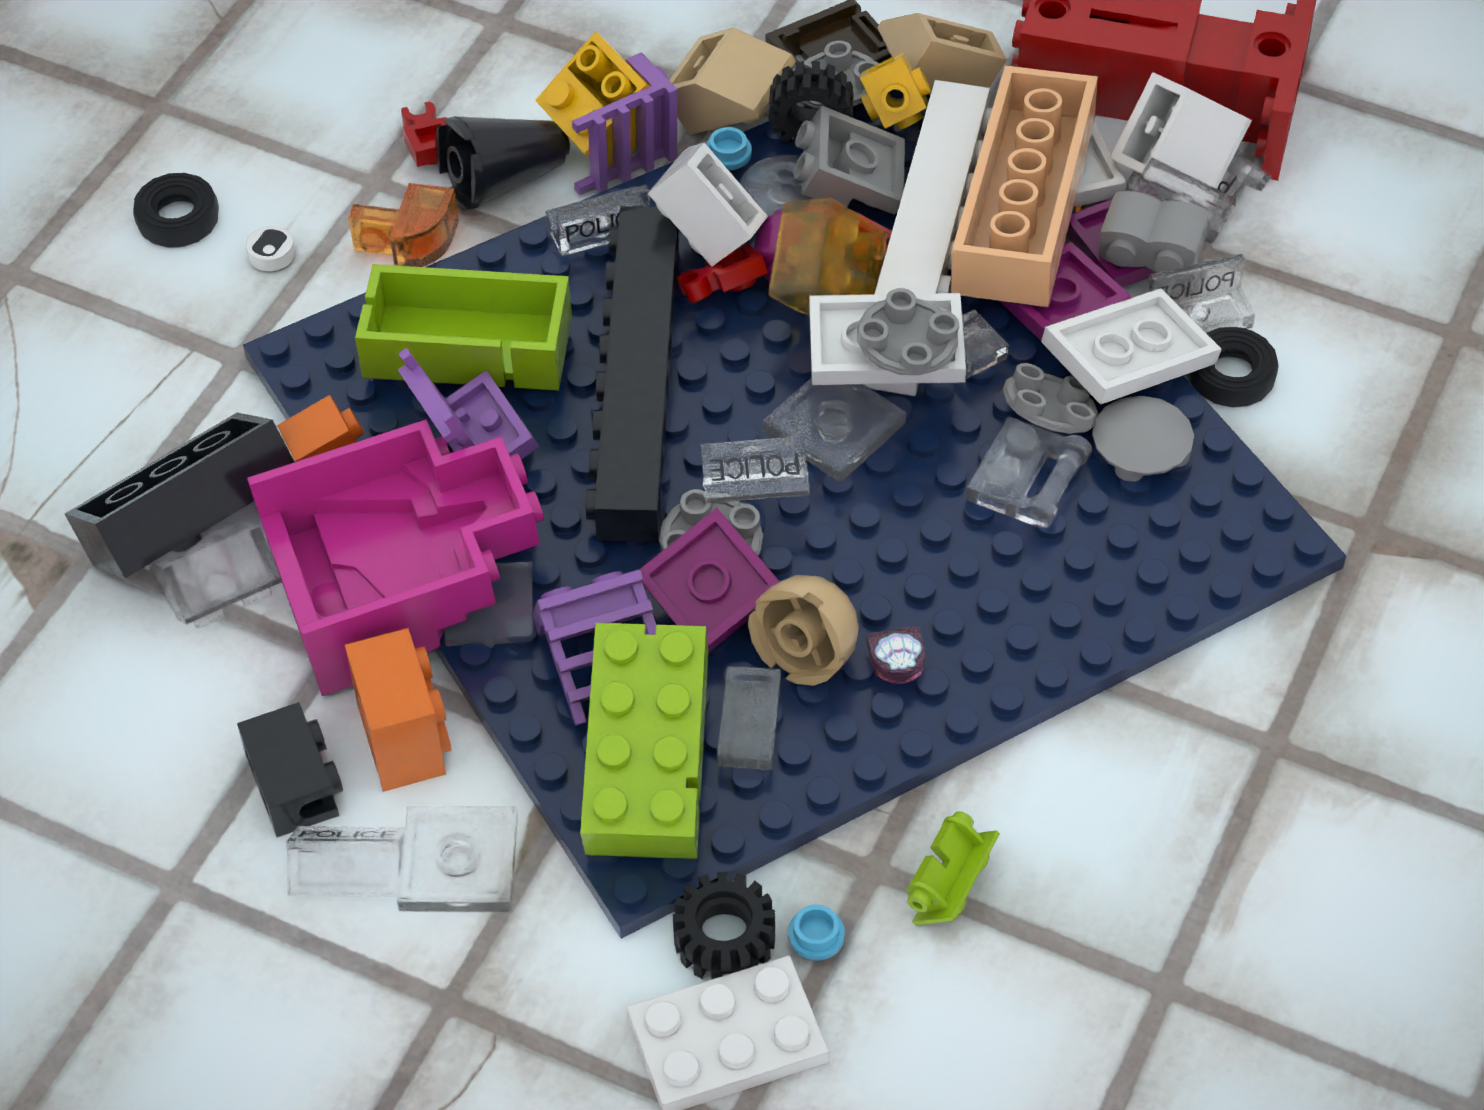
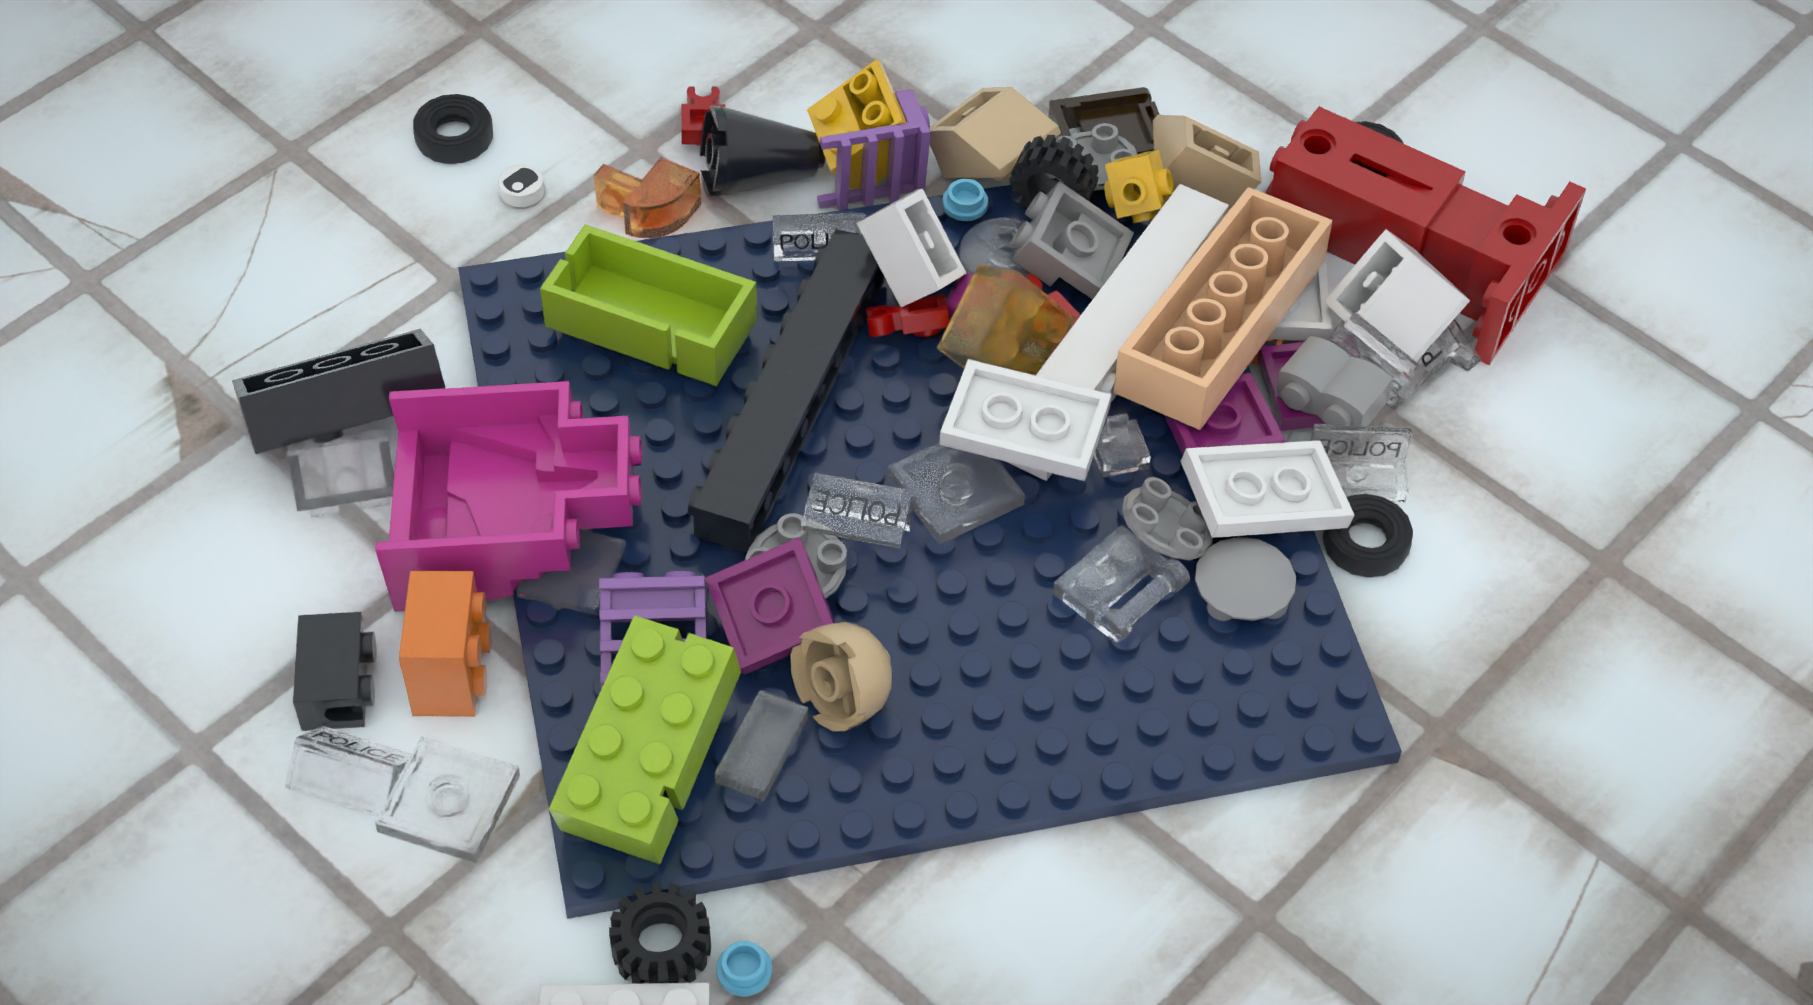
camera: 15 degrees right, 0 degrees up
(320, 429) = (480, 364): orange brick -> none
(471, 413) = (622, 389): medium lavender plate -> none
(897, 654) = (924, 724): tile -> none
(907, 334) = (1040, 421): light grey dish -> none
(942, 889) = (874, 963): lime hinge -> none

